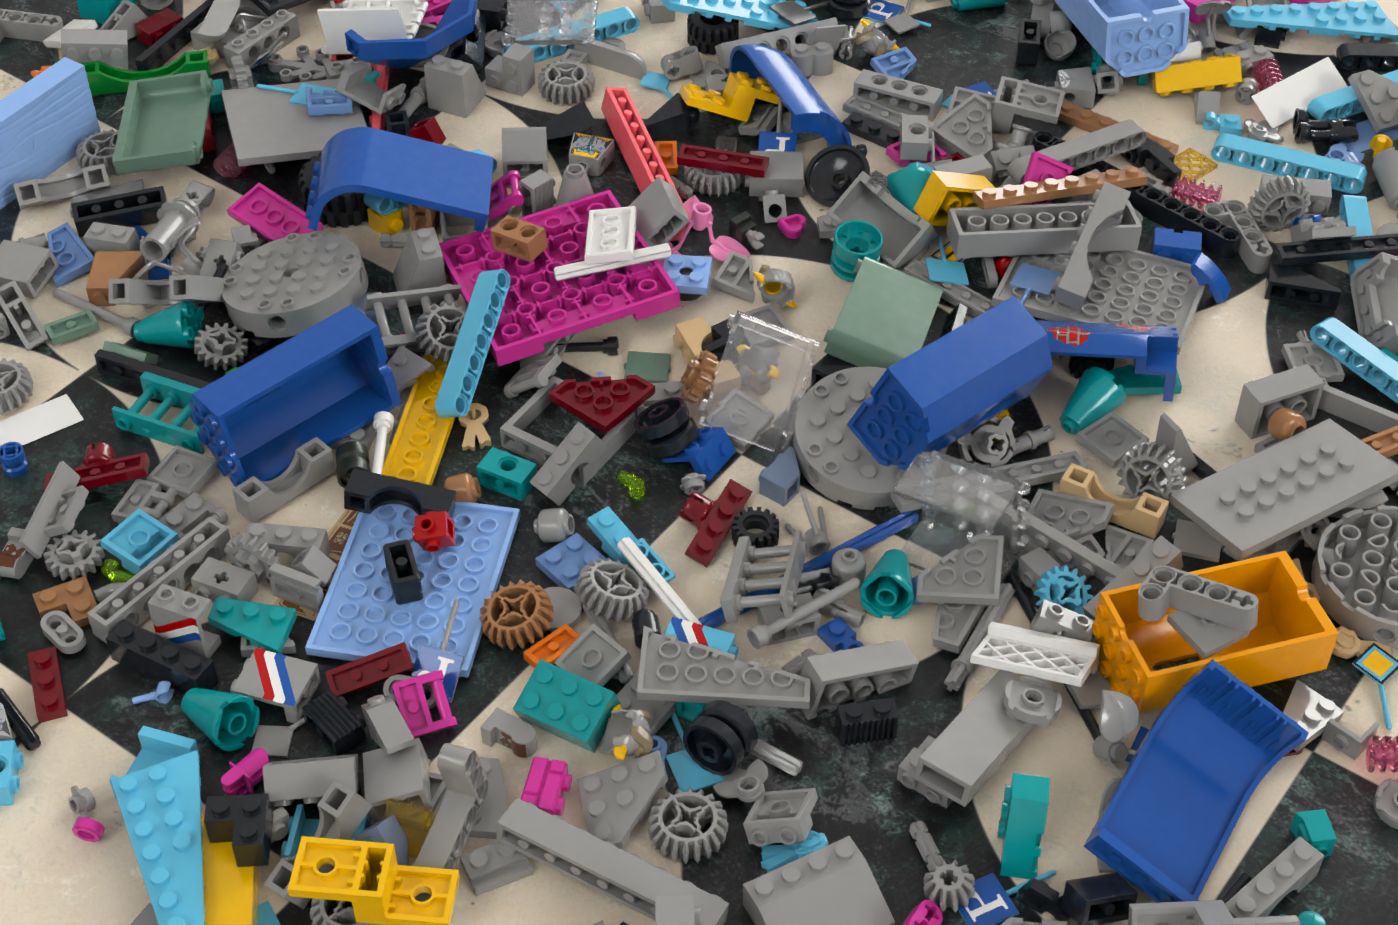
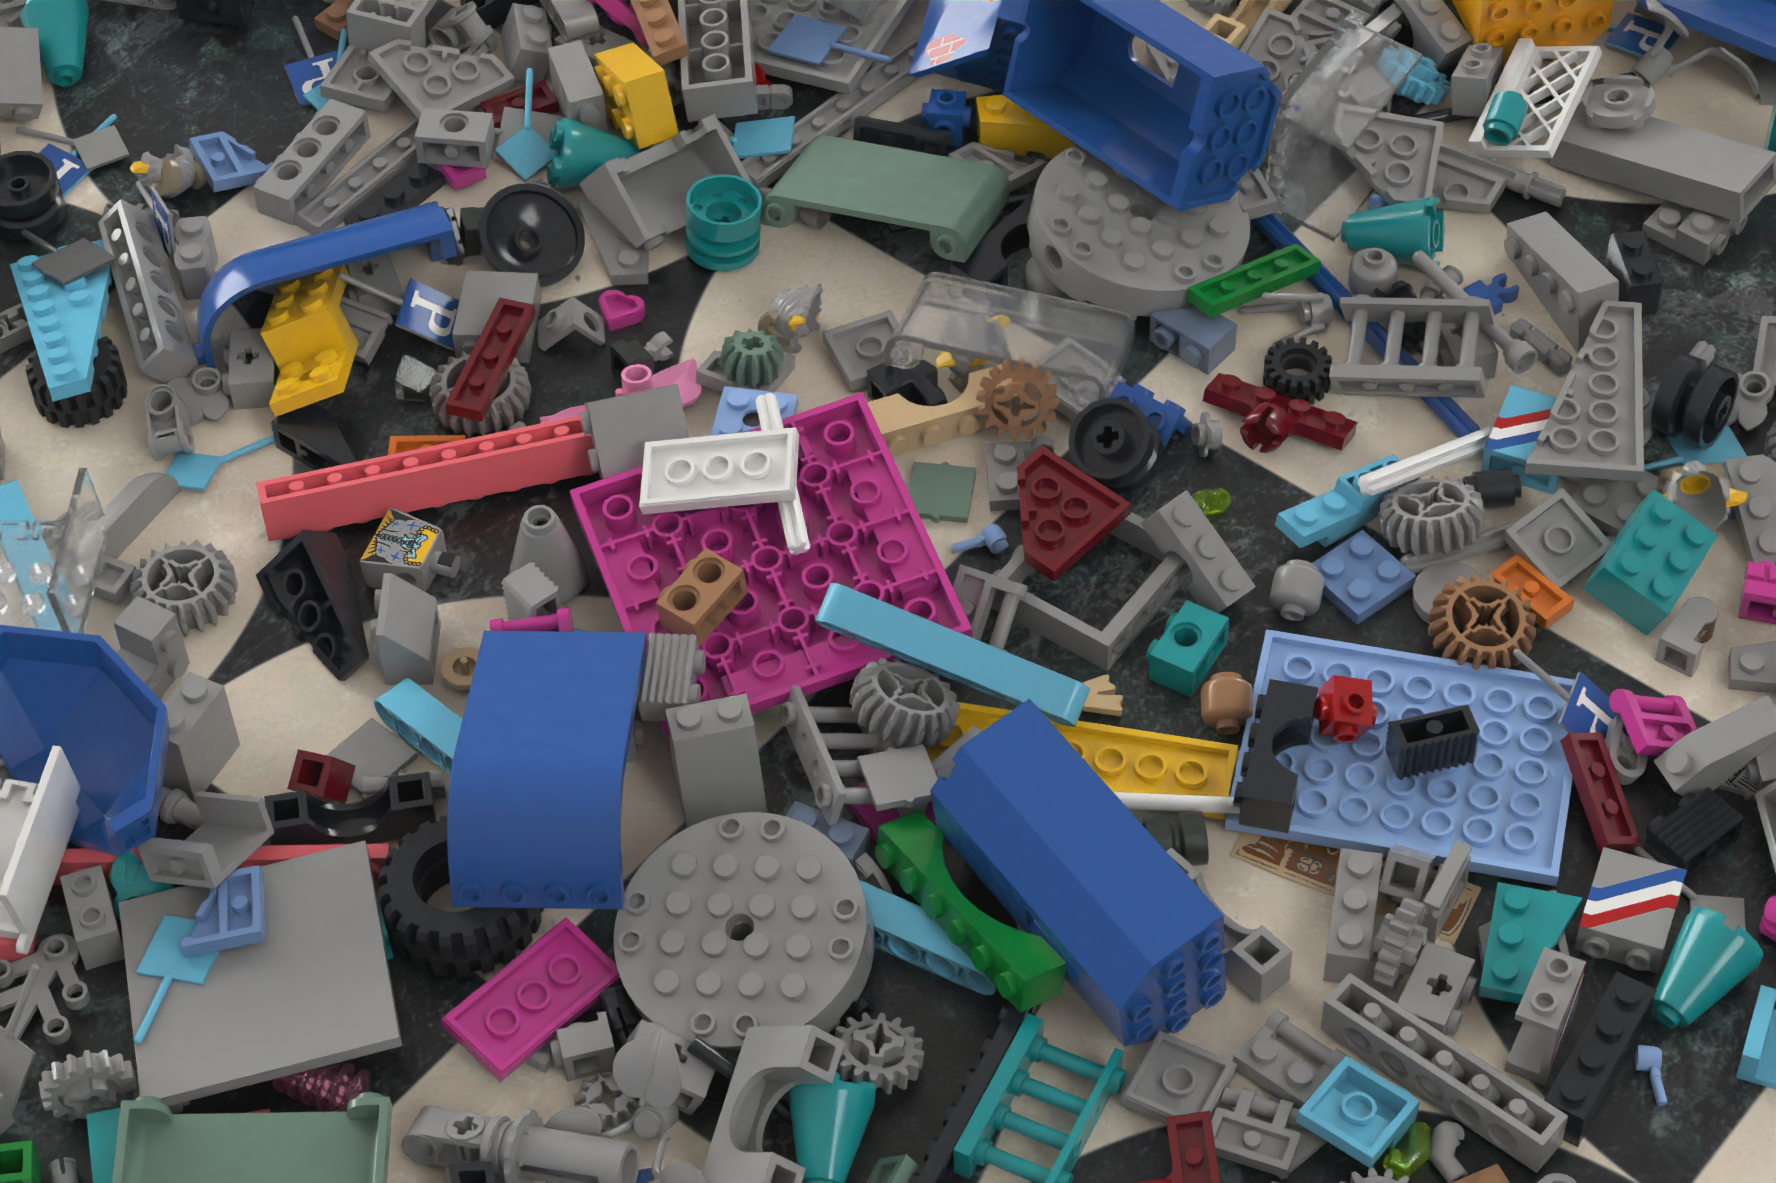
camera: 85 degrees left, 5 degrees up
(395, 329) = (898, 777): none -> light grey piece
(464, 233) = (670, 674): none -> light grey brick
(736, 266) = (751, 357): none -> sand green gear
(826, 496) = (1252, 280): none -> green plate
(1006, 632) = (1504, 118): none -> teal brick

